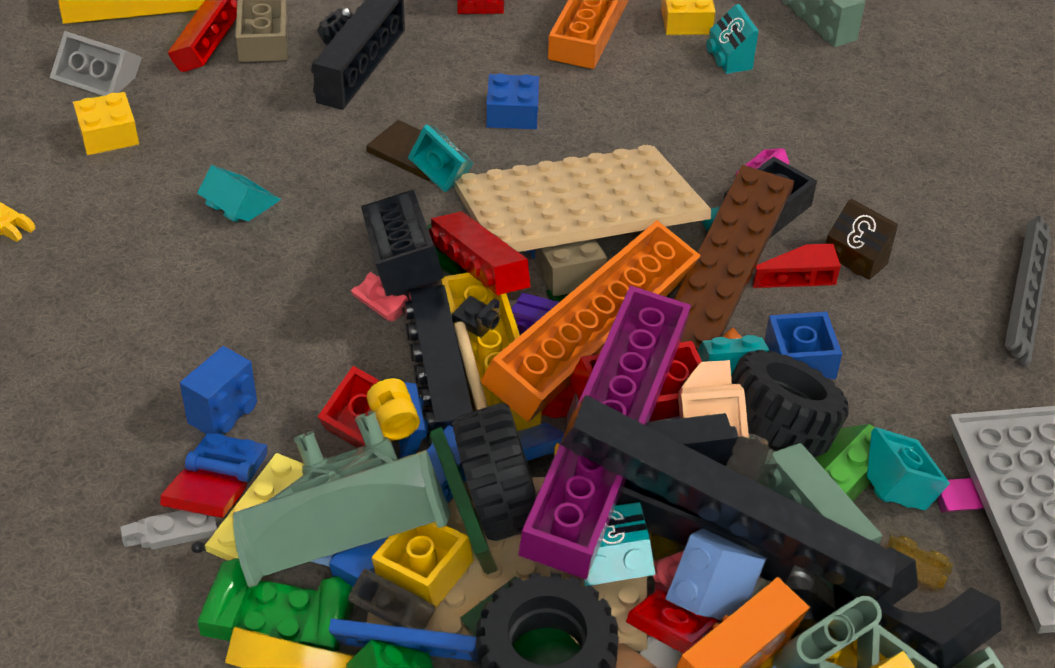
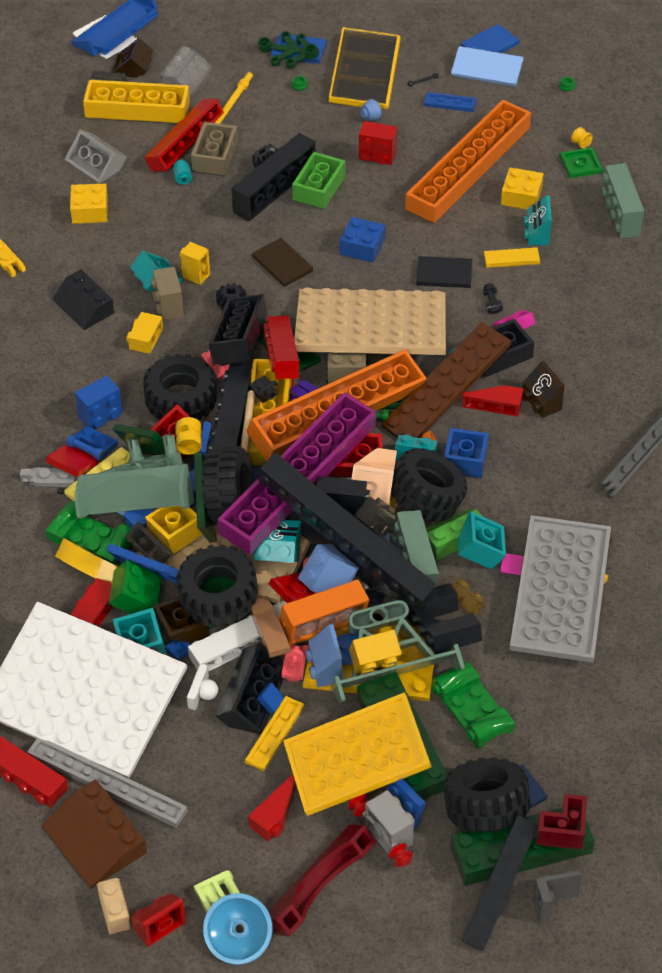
camera: 20 degrees right, 5 degrees up
(141, 250) = (84, 300): none -> black slope
(227, 64) = (182, 172): none -> teal brick
(251, 278) = (145, 332): none -> yellow brick
(269, 216) = (167, 293): none -> dark tan brick
(293, 169) = (195, 263): none -> yellow brick
(331, 319) = (176, 371): none -> black tyre
(332, 431) = (149, 440): none -> dark green tile
(351, 203) = (228, 291): none -> black gear
(421, 42) = (319, 180): none -> bright green brick
(439, 158) = (293, 273): teal slope -> none
(638, 123) = (444, 272): none -> black tile
(715, 90) = (511, 257): none -> yellow tile
(723, 151) = (493, 305): none -> black bar

